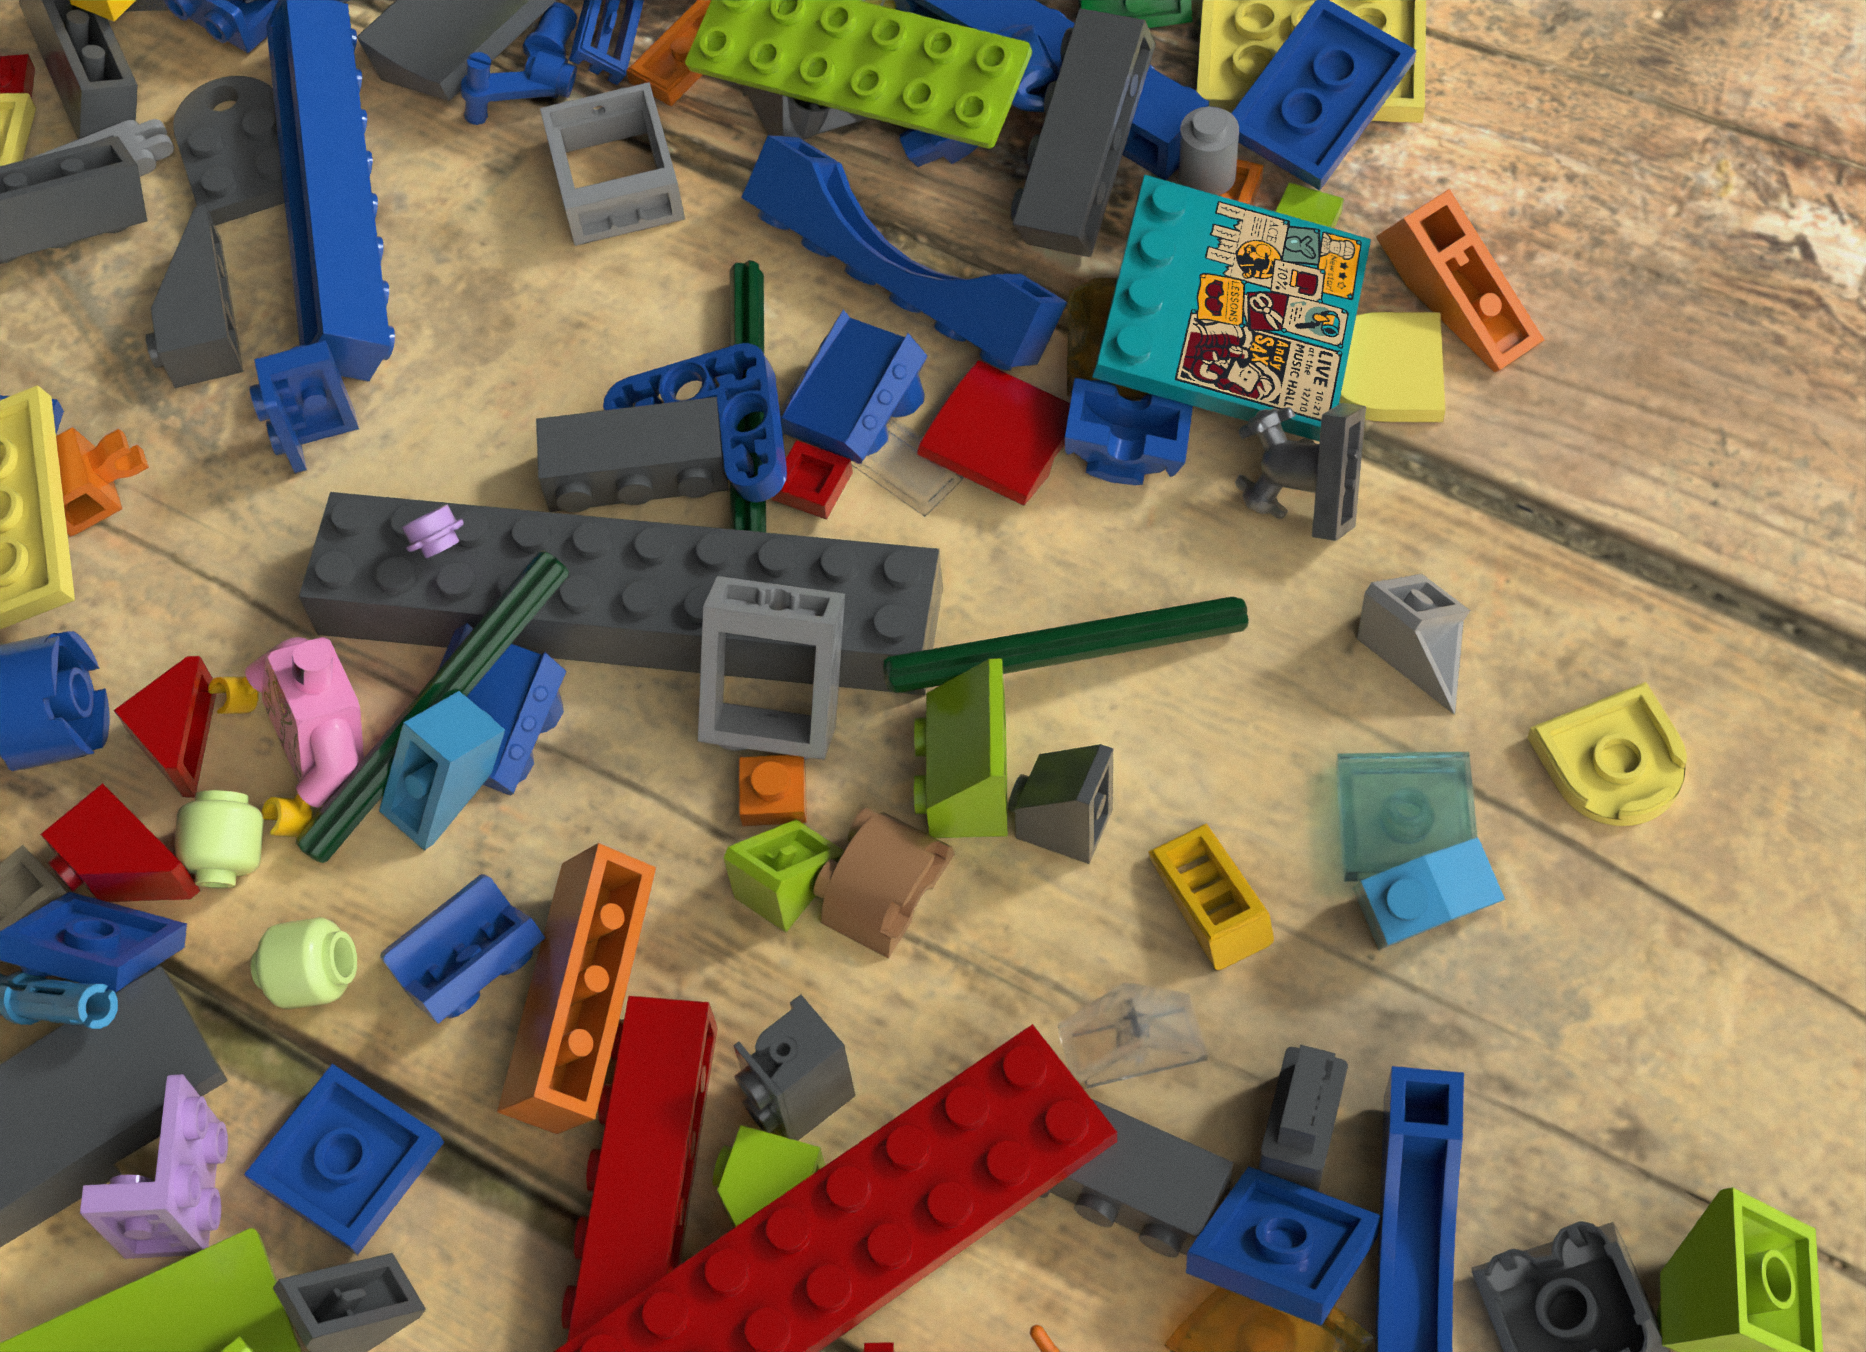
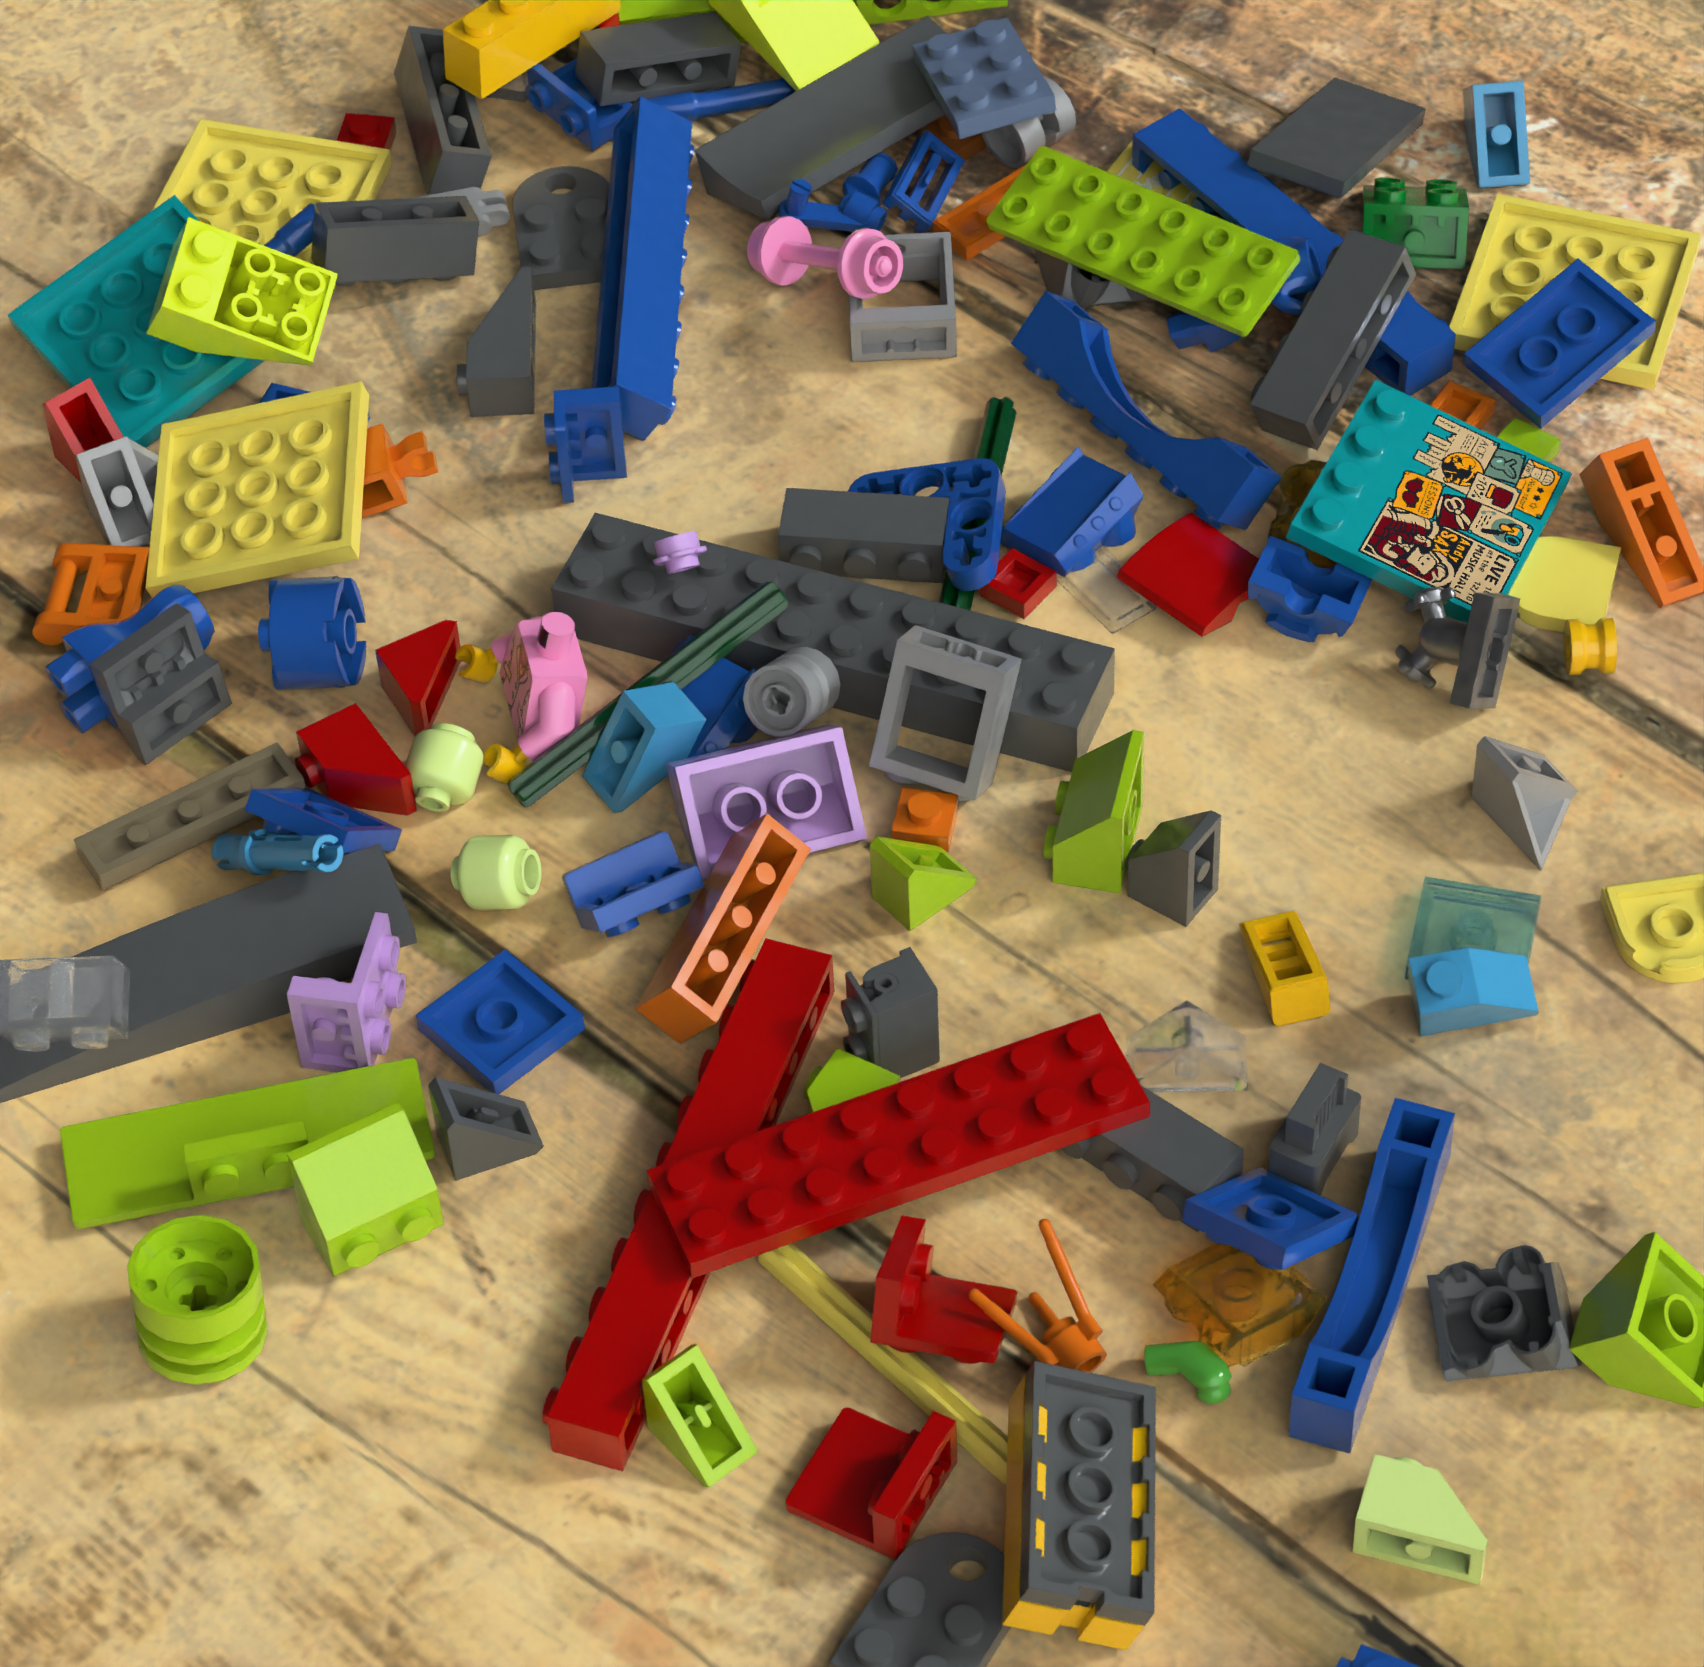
camera: 10 degrees right, 10 degrees down
(567, 136) = (865, 262): none -> bright pink piece
(593, 674) = (791, 691): none -> light grey wheel
(601, 785) = (793, 778): none -> lavender slope
(879, 880) = (999, 901): medium nougat cylinder -> none
(1068, 643) = (1216, 745): dark green axle -> none
(1208, 150) = (1443, 372): light grey brick -> none
(1441, 437) = (1590, 646): none -> yellow wheel

